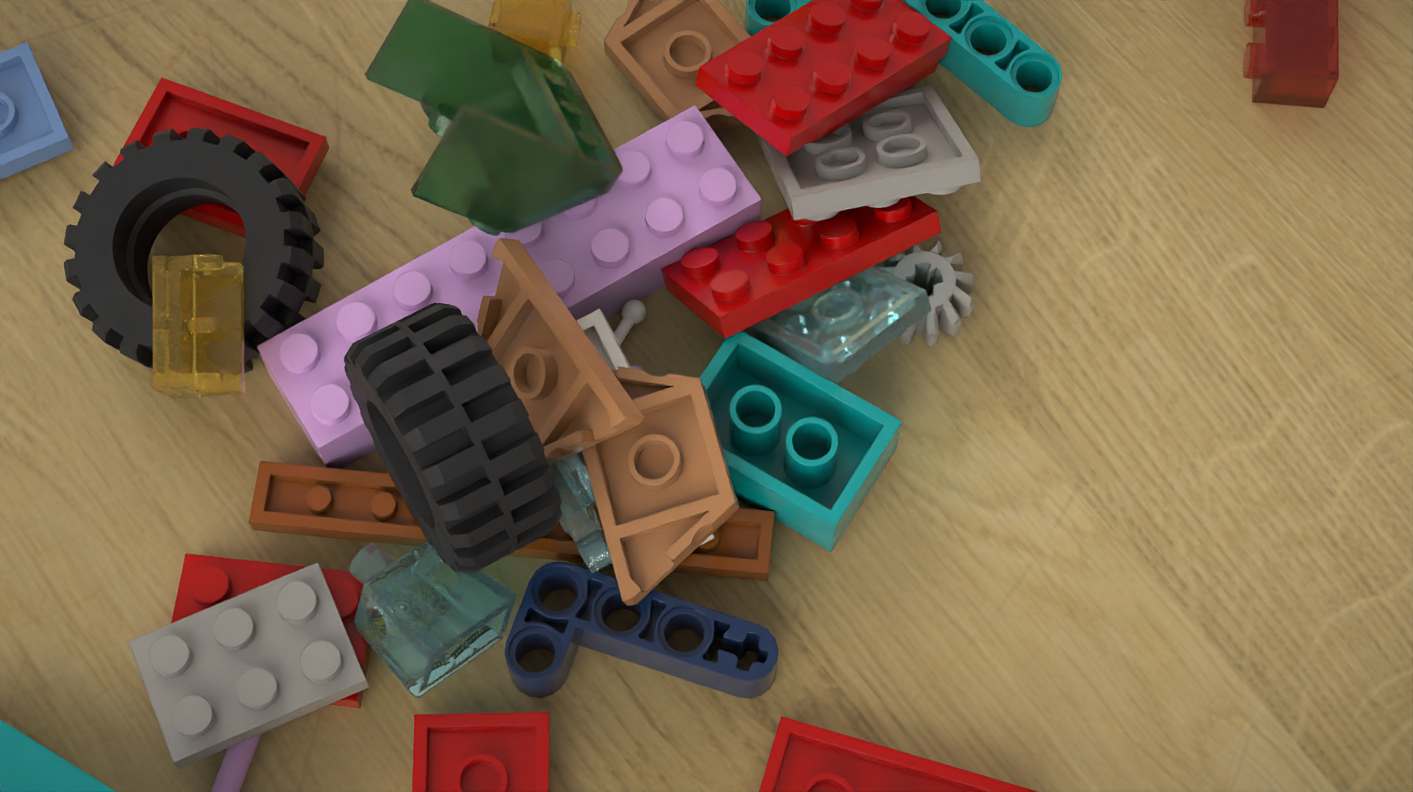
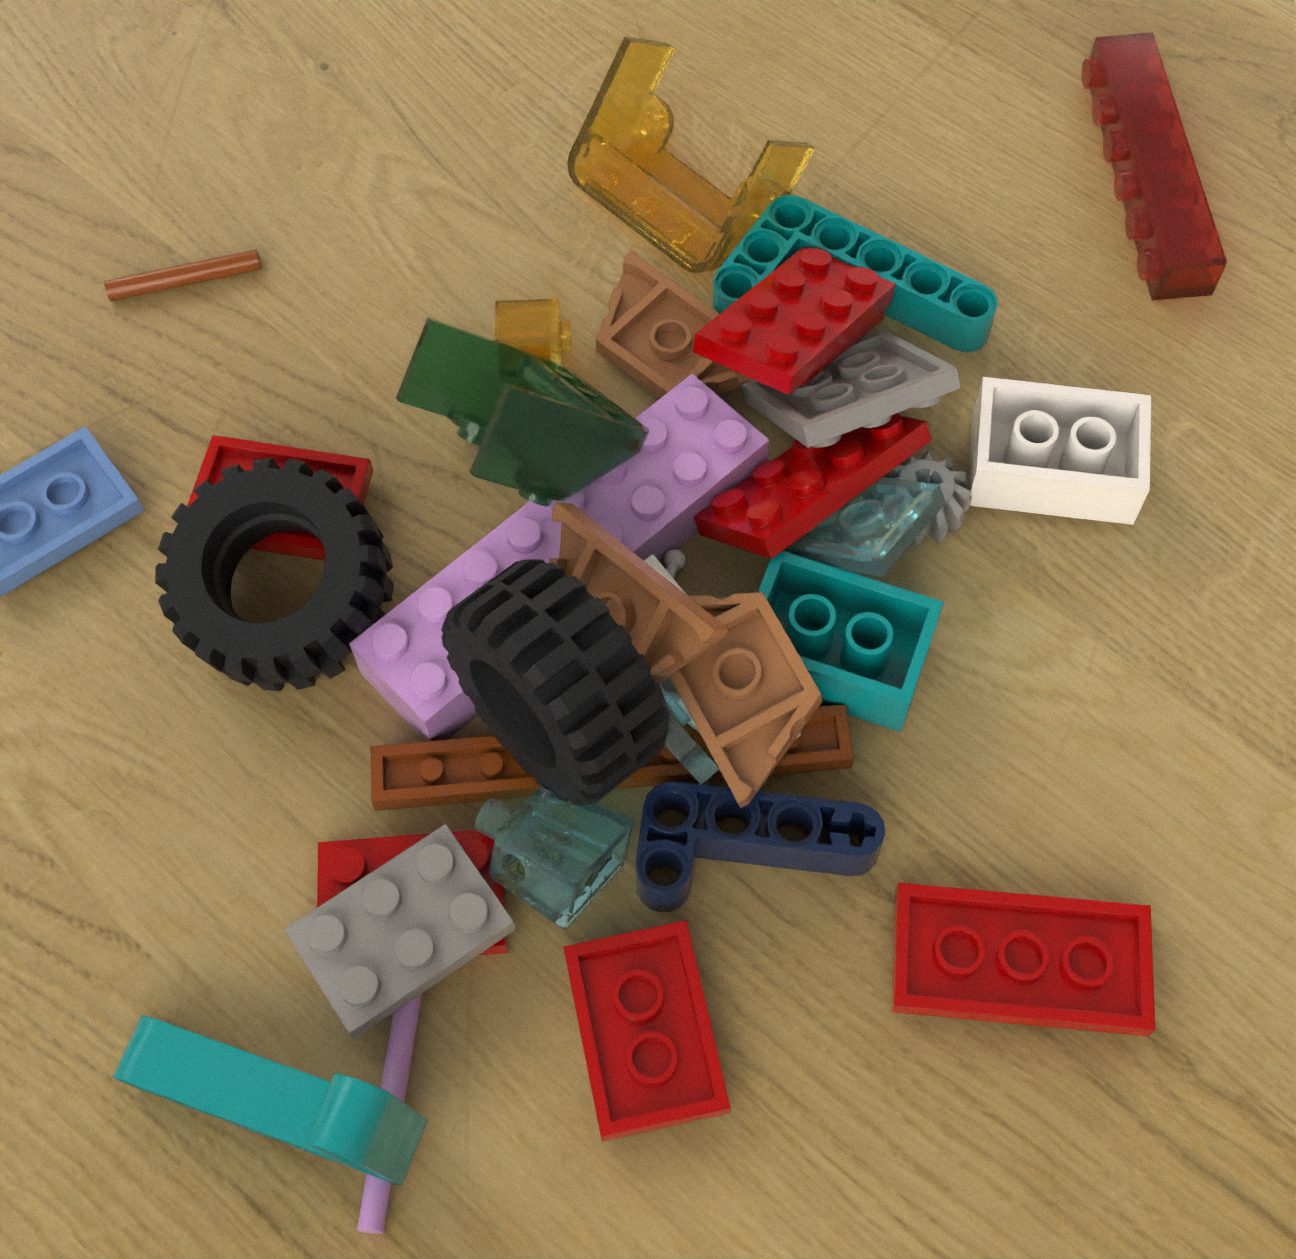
camera: 10 degrees left, 5 degrees down
(198, 326) = (296, 628): clear yellow hinge -> none
(1084, 267) = (1060, 450): none -> white brick

